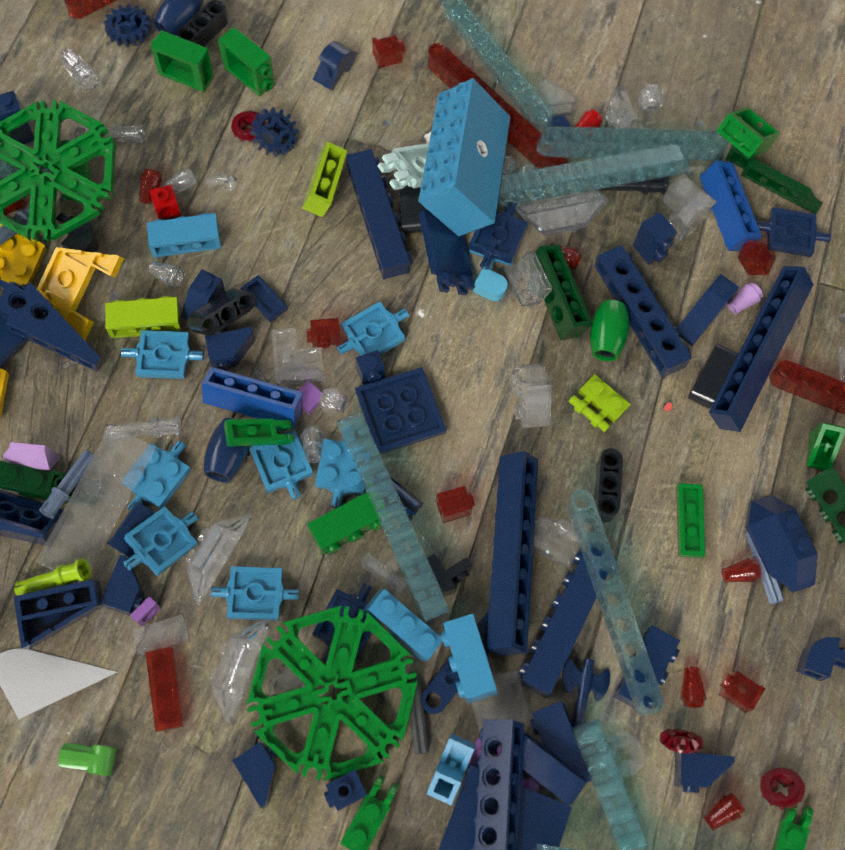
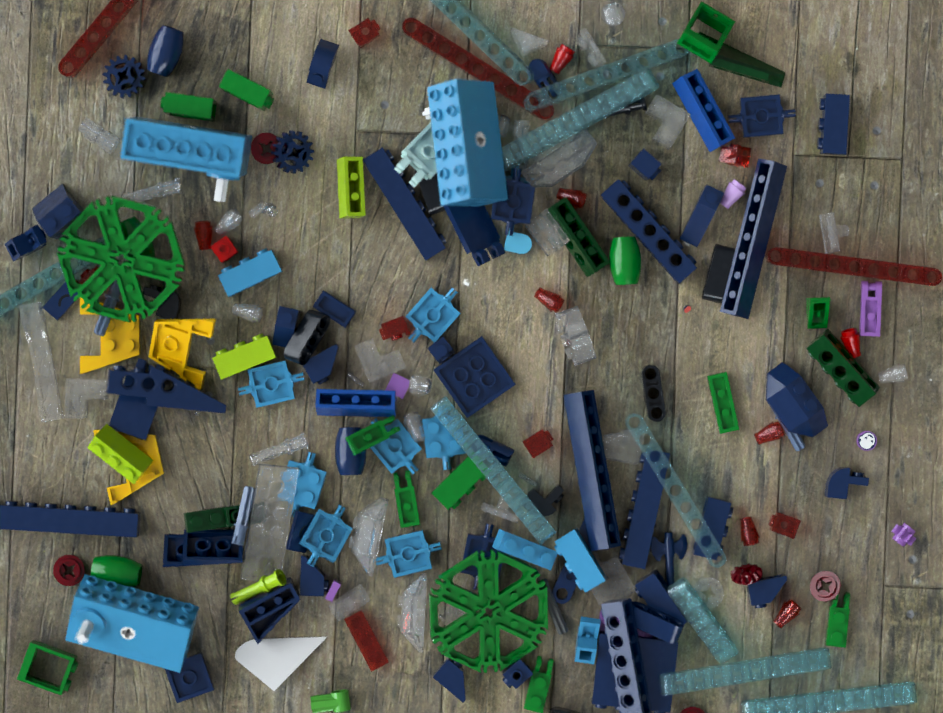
camera: 10 degrees left, 20 degrees up
(31, 455) = (206, 500): lavender slope -> none
(163, 88) = (188, 147): none -> dark azure piece
(205, 23) = (191, 48): black beam -> none
(273, 530) = (406, 502): none -> green hinge
(512, 352) = (550, 300): none -> clear red cone
(604, 399) = (634, 318): lime plate -> none

